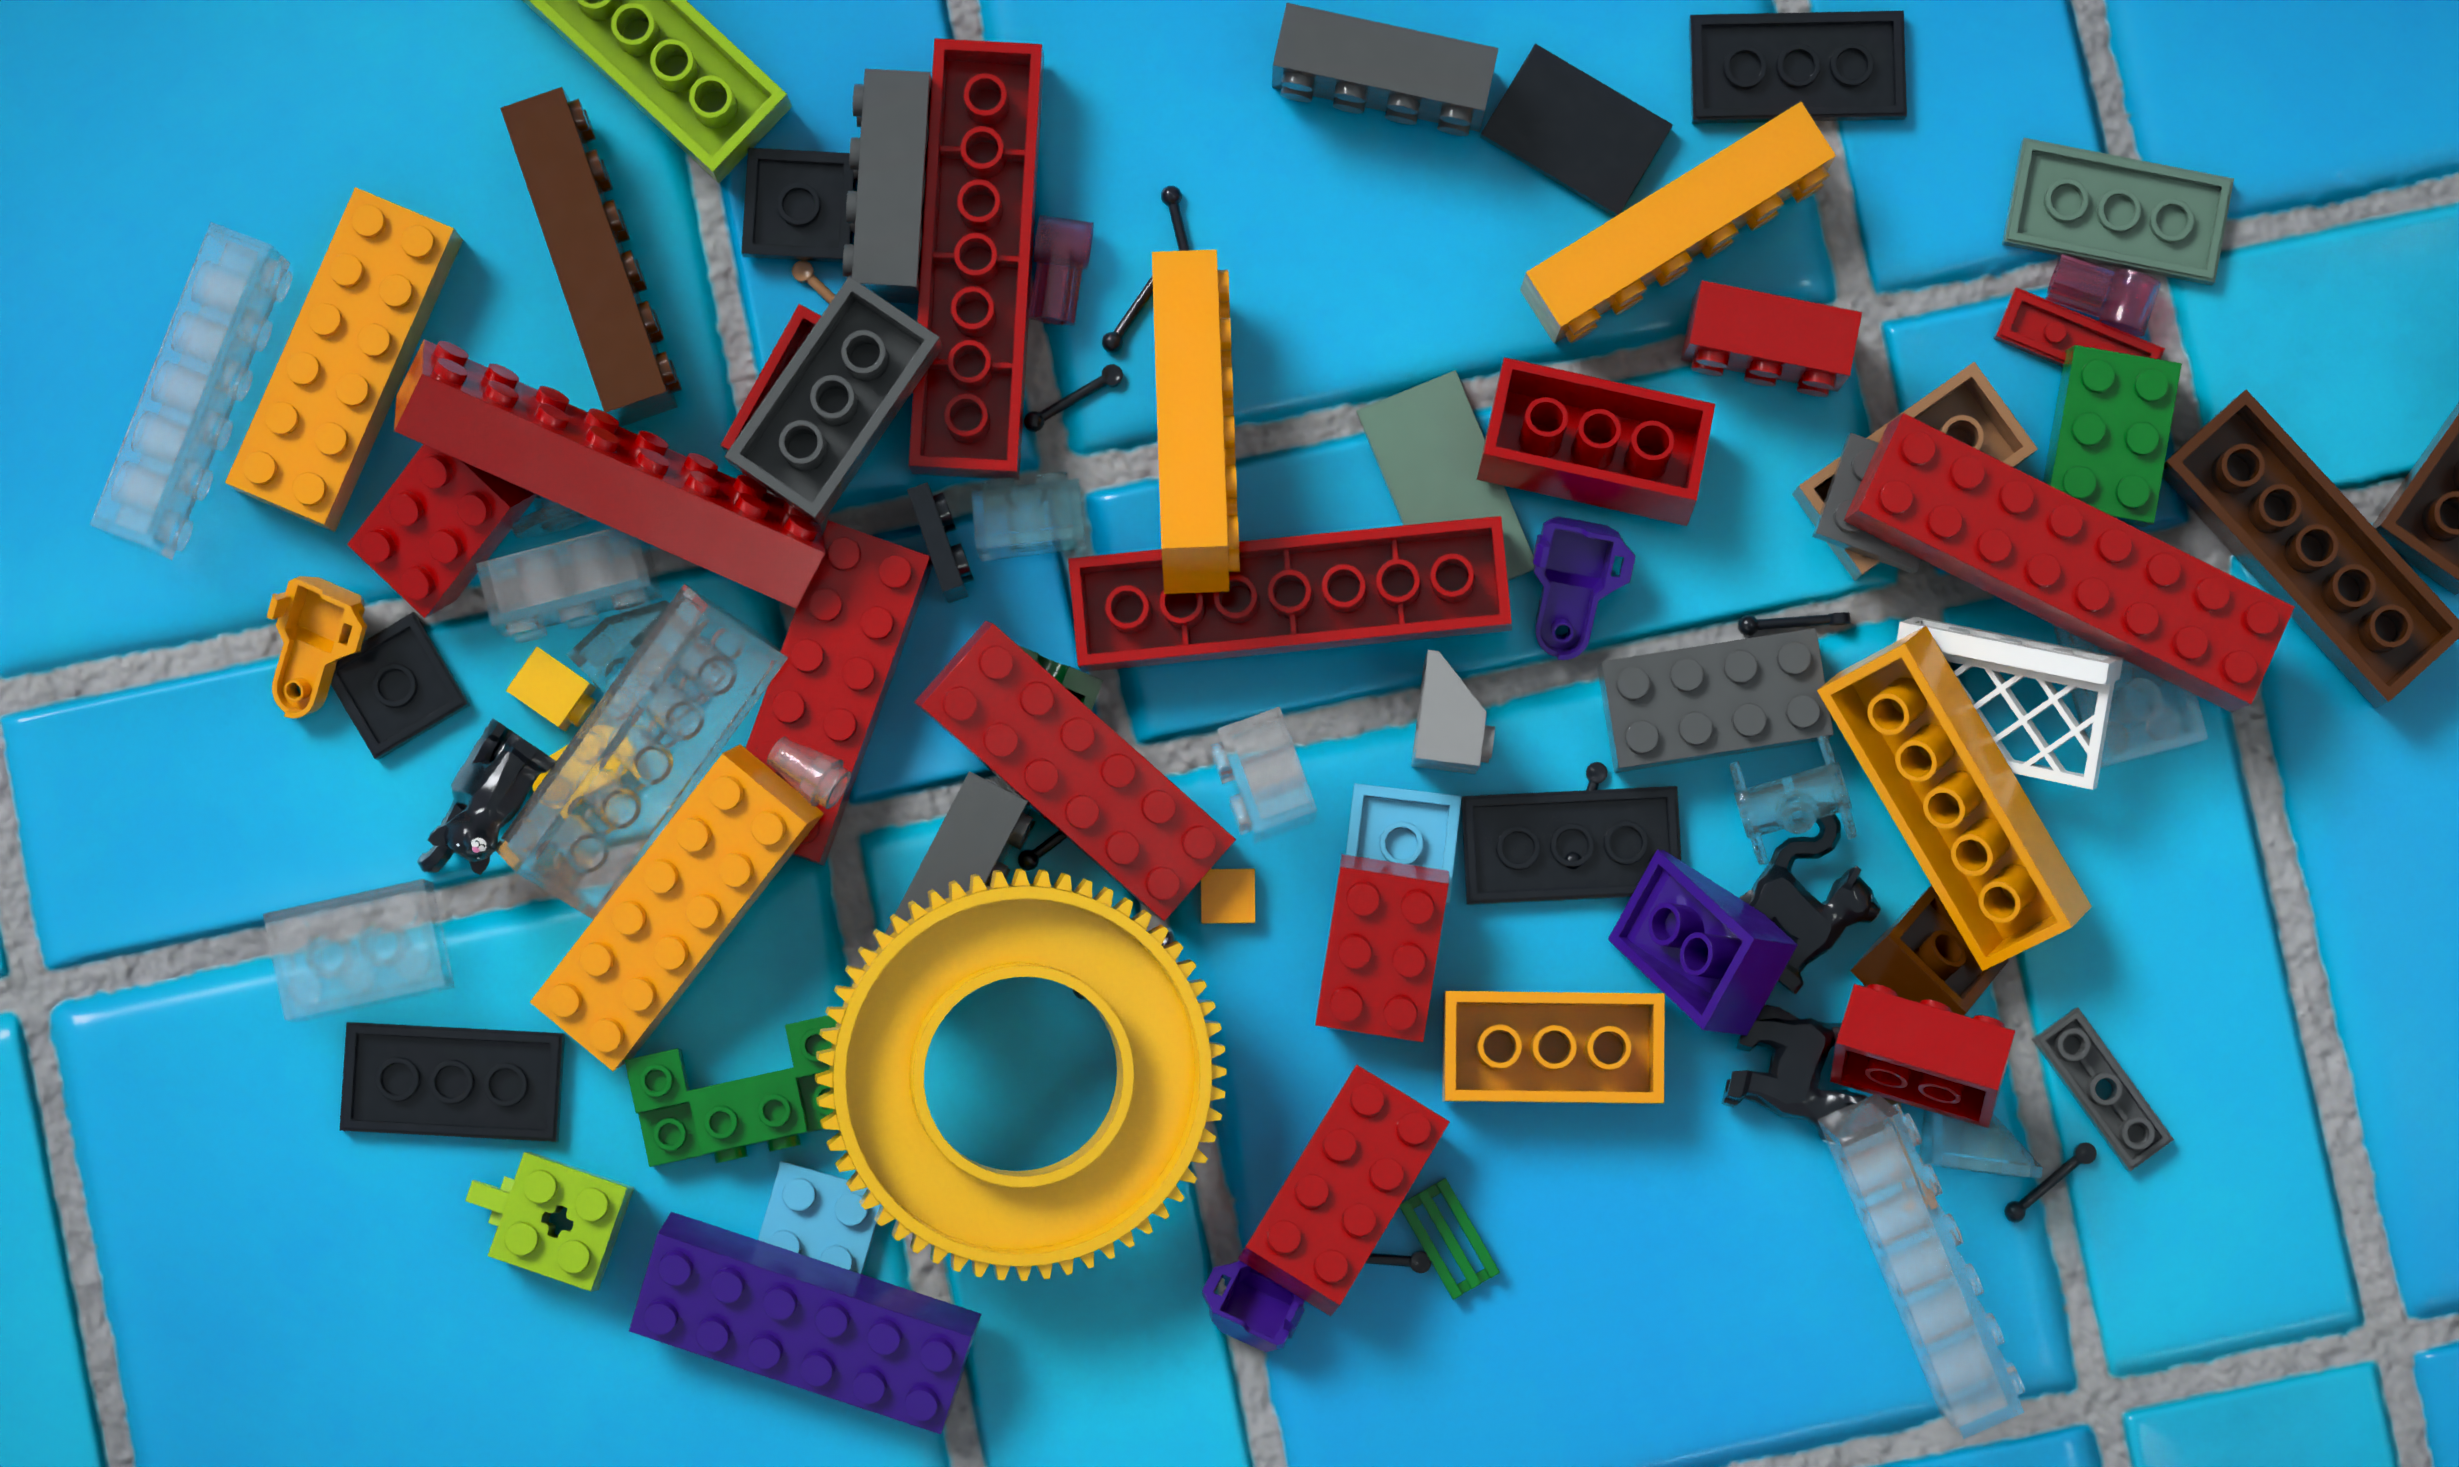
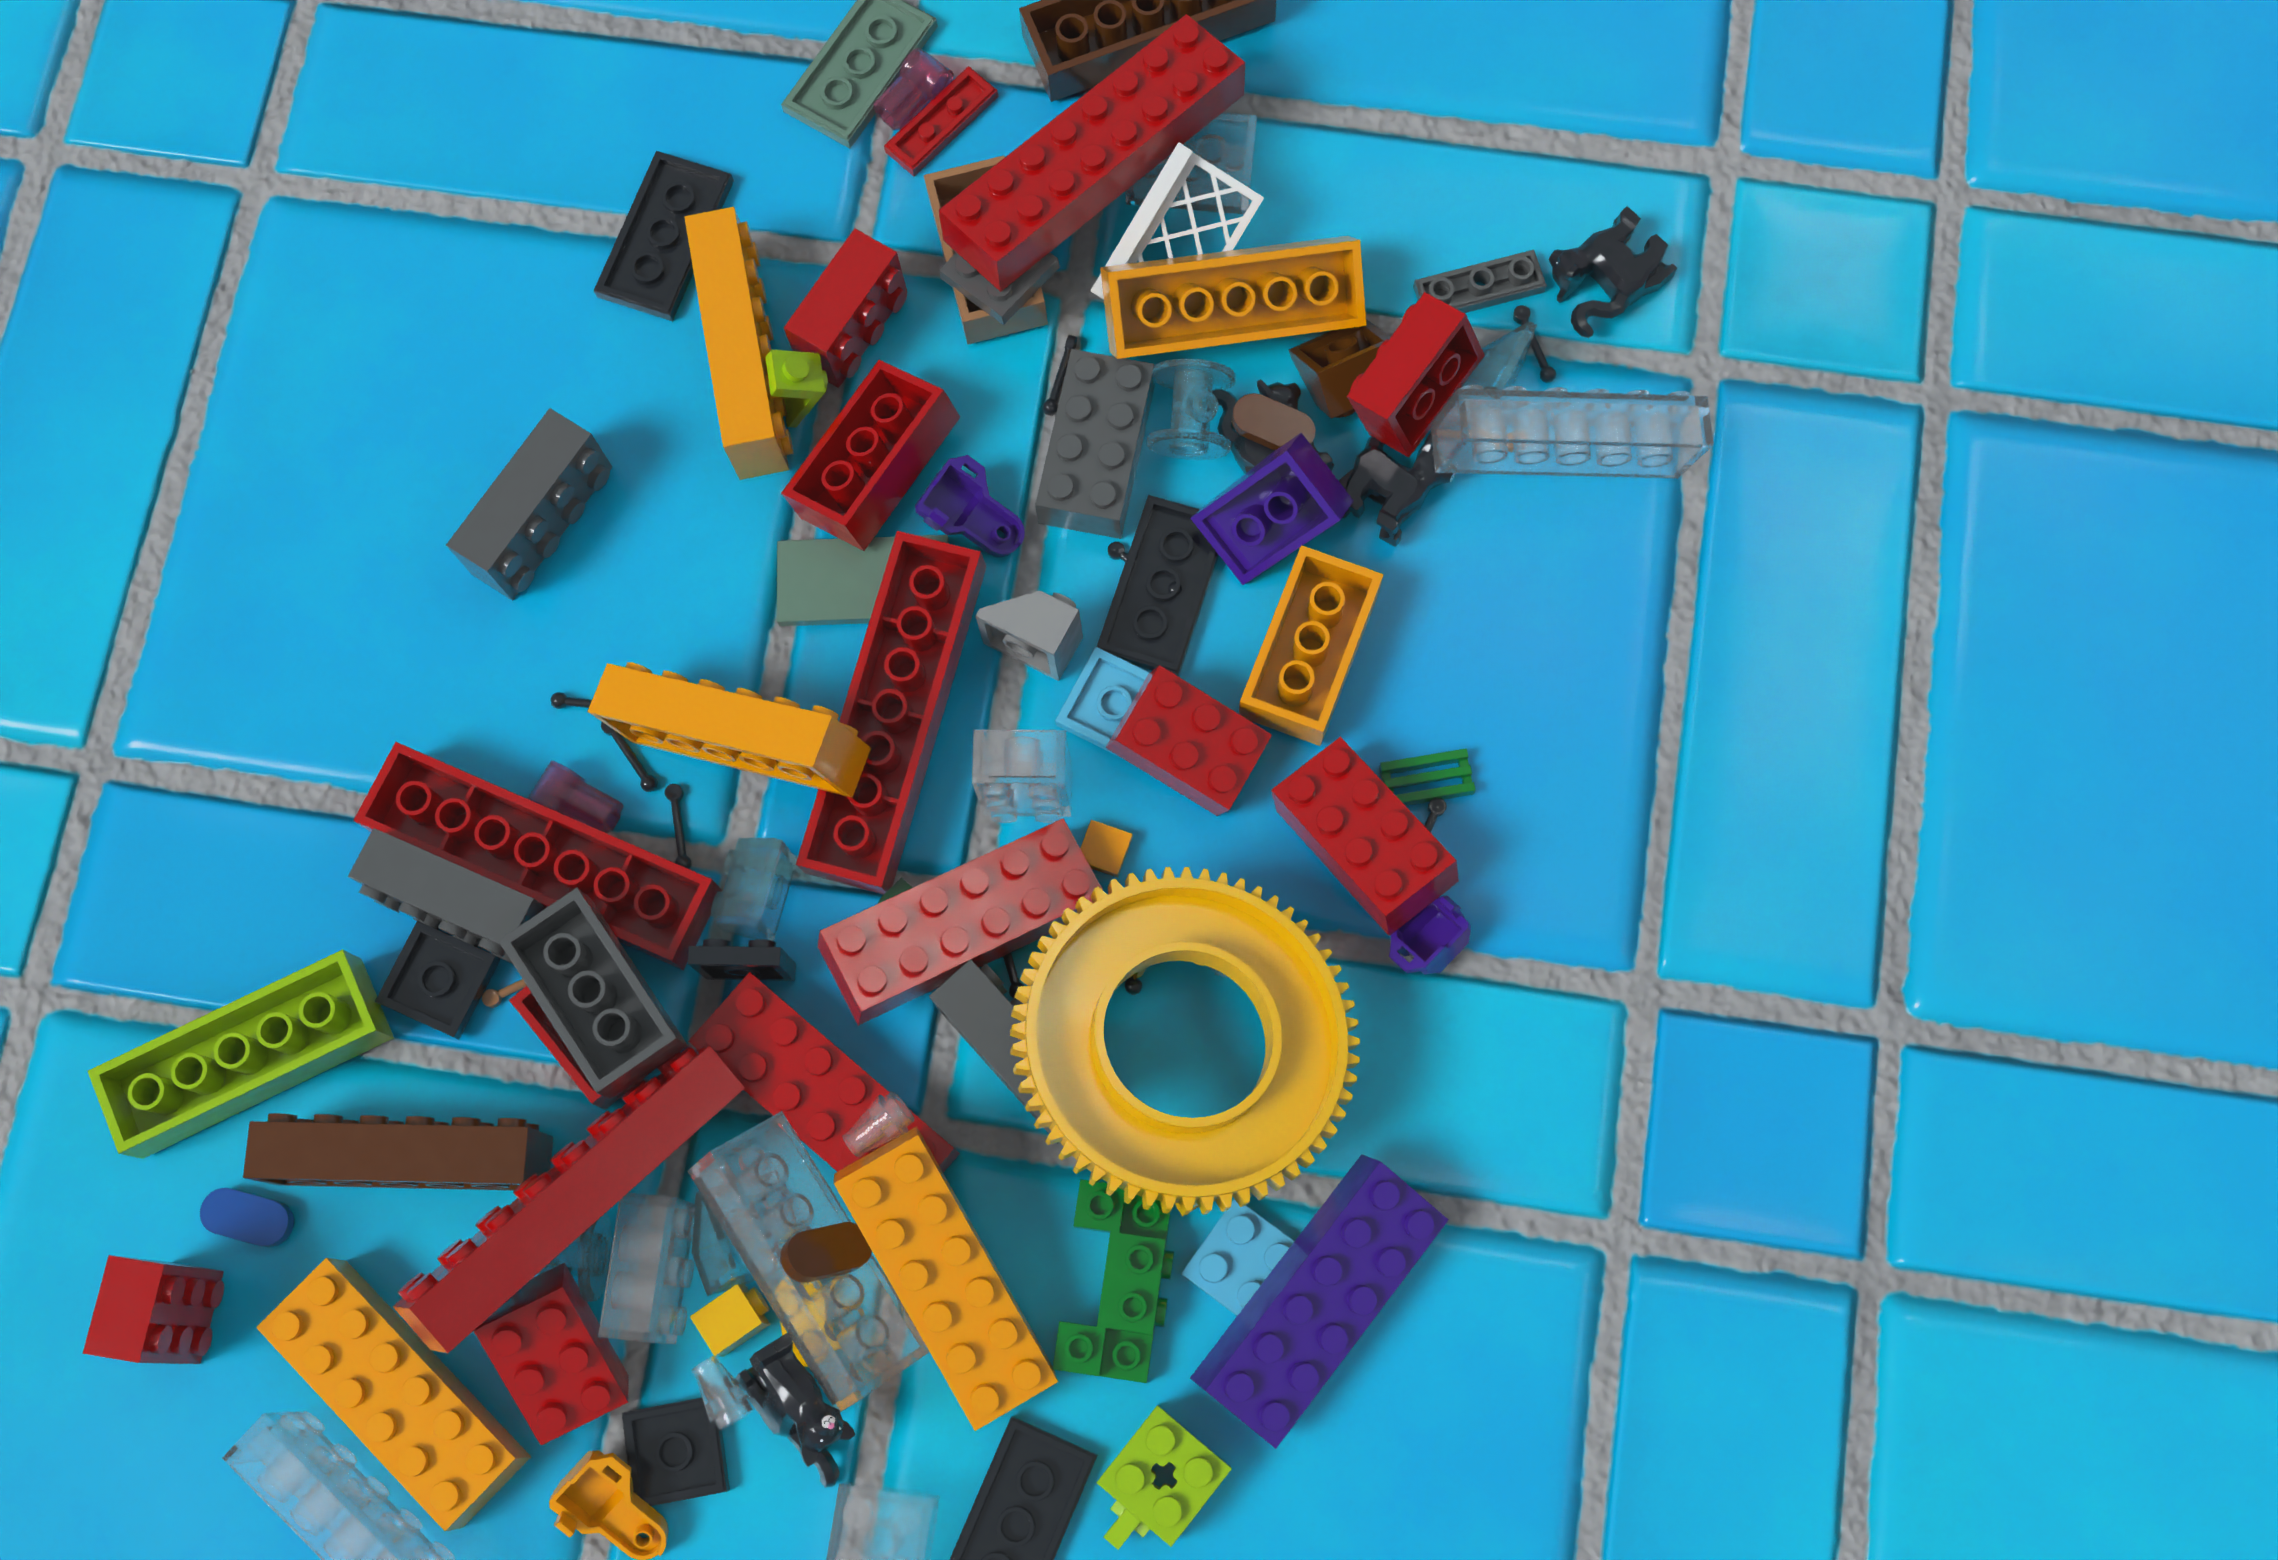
camera: 65 degrees left, 10 degrees down
(331, 76) = (154, 1311): none -> red brick
(467, 112) = (246, 1217): none -> blue tile
(471, 712) = (721, 1393): none -> clear cone
(651, 769) = (825, 1252): none -> reddish brown tile
(1576, 130) = (641, 398): black tile -> none
(1648, 319) = (797, 379): none -> lime bracket
(1808, 904) = (1270, 421): none -> reddish brown tile
(2112, 431) = (1001, 103): green brick -> none
(2183, 1247) = (1614, 267): none -> black animal

